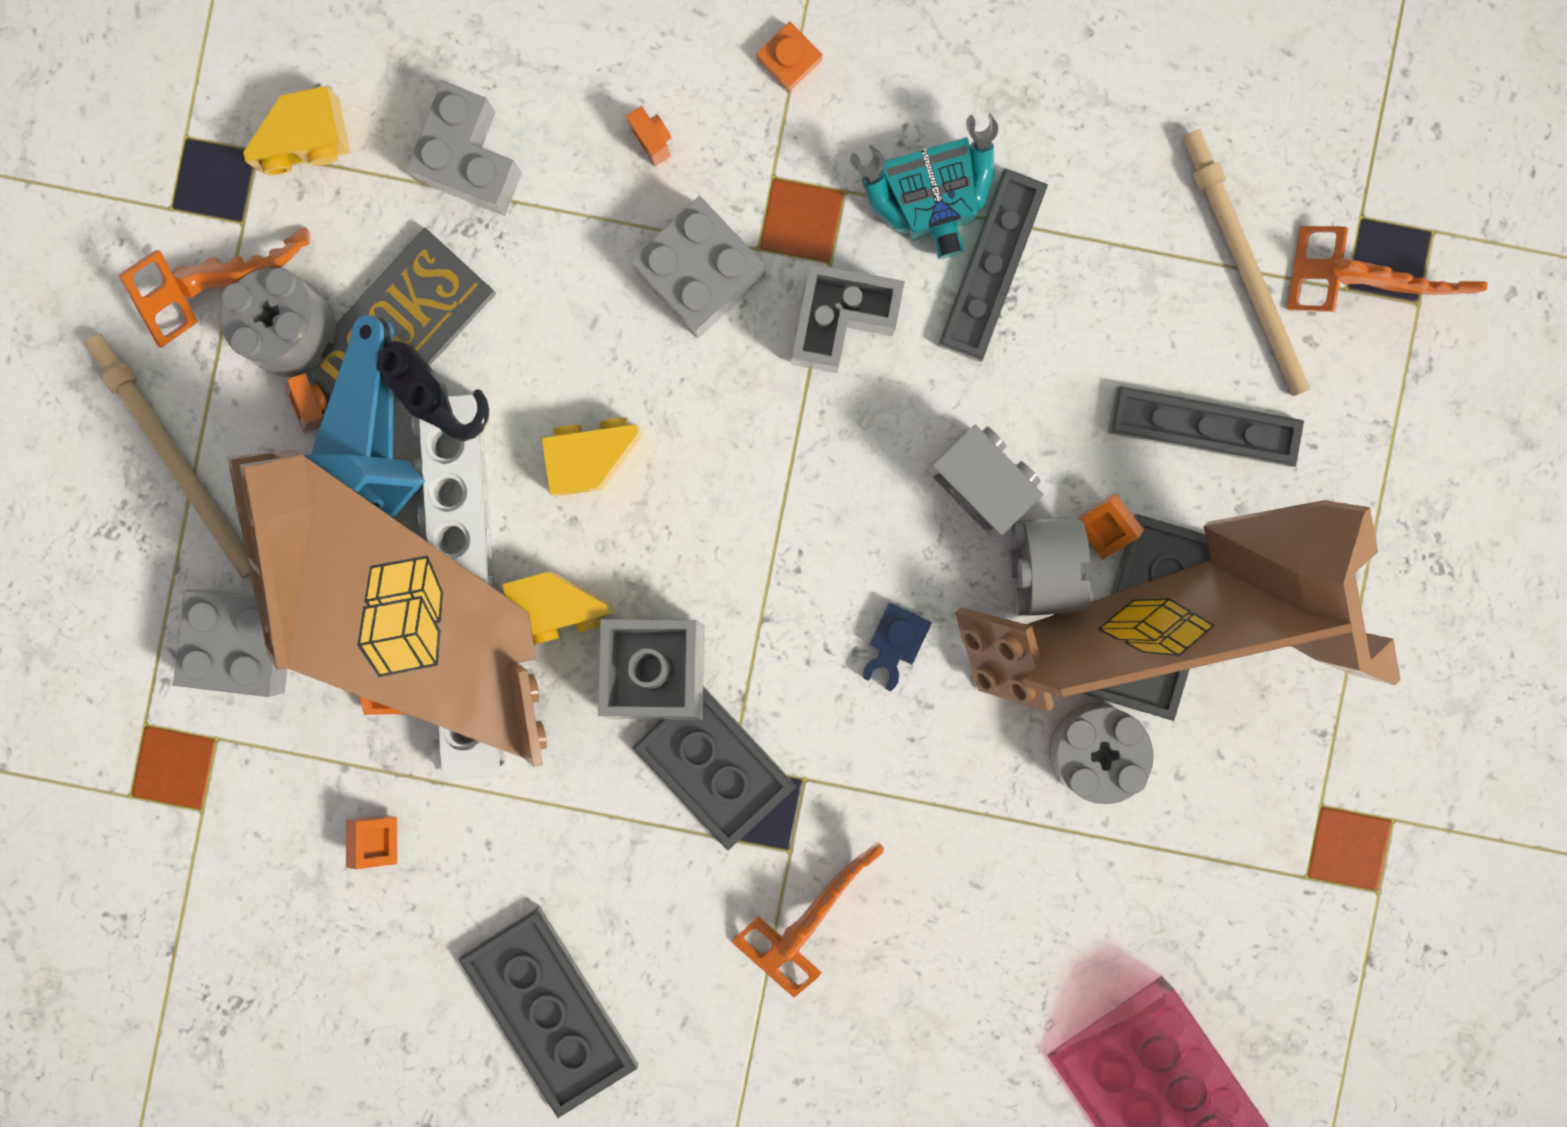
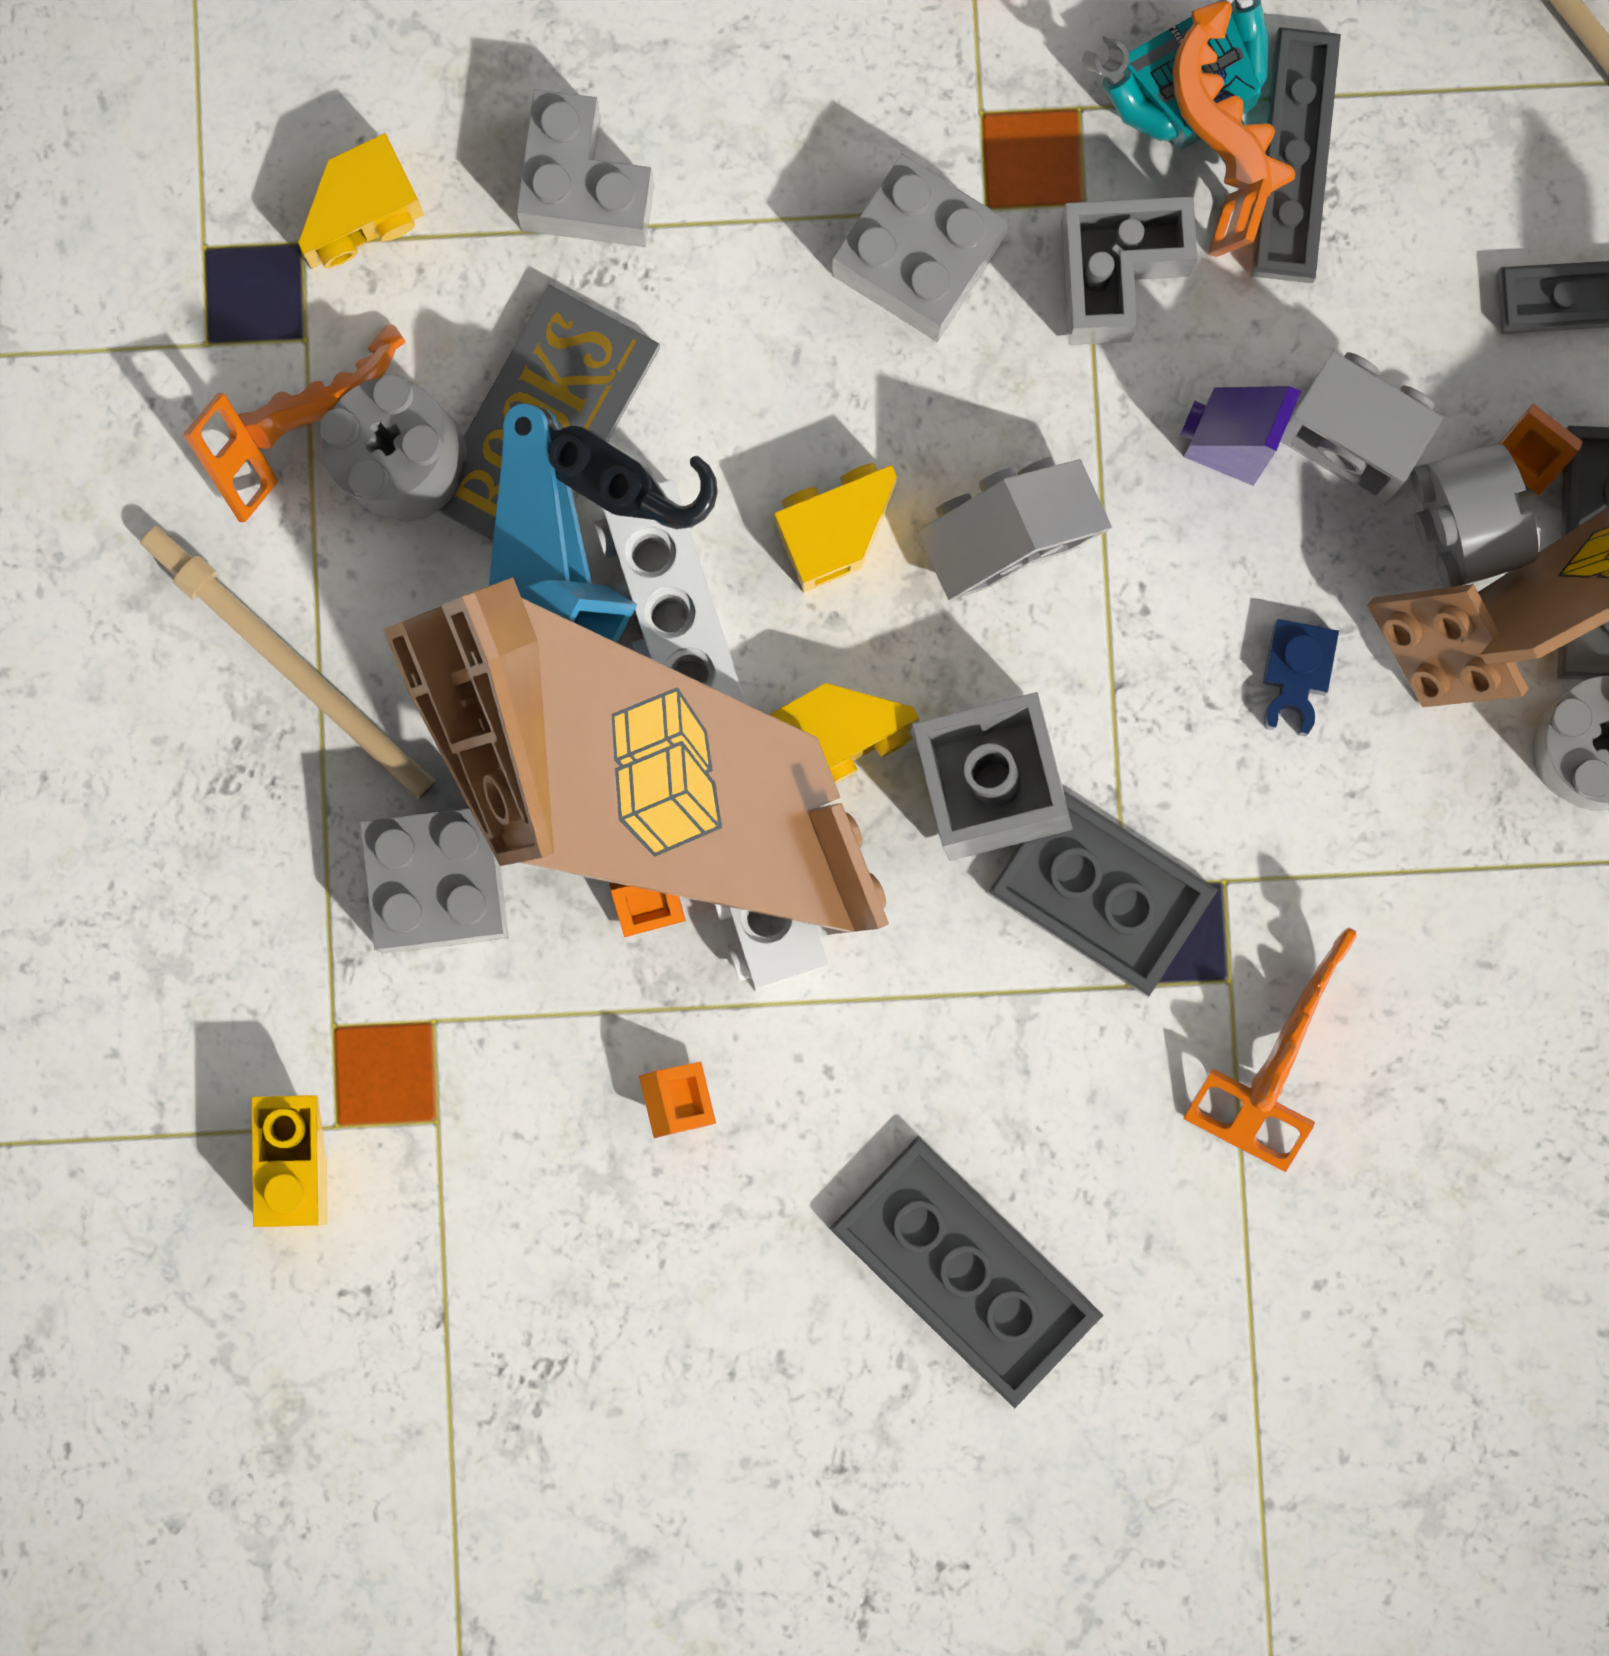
camera: 20 degrees left, 5 degrees down
(79, 823) = (288, 1162): none -> yellow slope
(306, 402) = (450, 546): orange plate -> none
(651, 134) = (812, 95): orange plate -> none
(714, 488) = (1012, 524): none -> light grey brick
(894, 460) = (1239, 429): none -> slope
(941, 237) = (1223, 130): none -> orange piece

